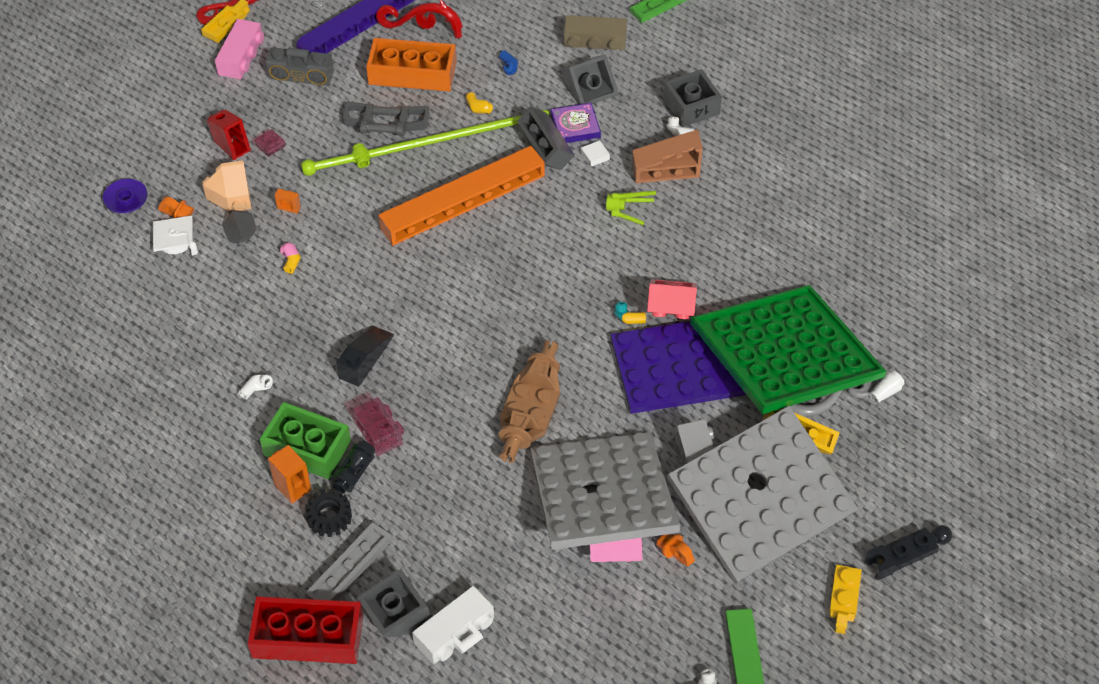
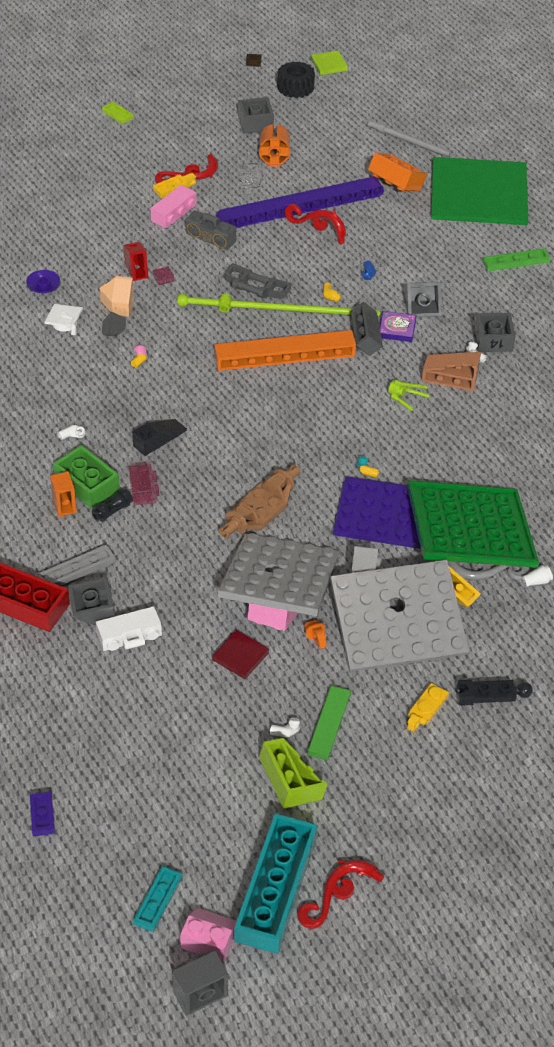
camera: 20 degrees right, 5 degrees down
(173, 208) = (73, 300): orange piece -> none
(287, 201) = (155, 317): orange plate -> none
(332, 524) = (82, 537): black tyre -> none
(411, 64) = (293, 250): orange brick -> none
(595, 32) = (445, 267): dark tan brick -> none
(595, 153) = (401, 351): white tile -> none
(600, 608) = (240, 654): none -> dark red tile
(672, 298) = (406, 465): coral brick -> none

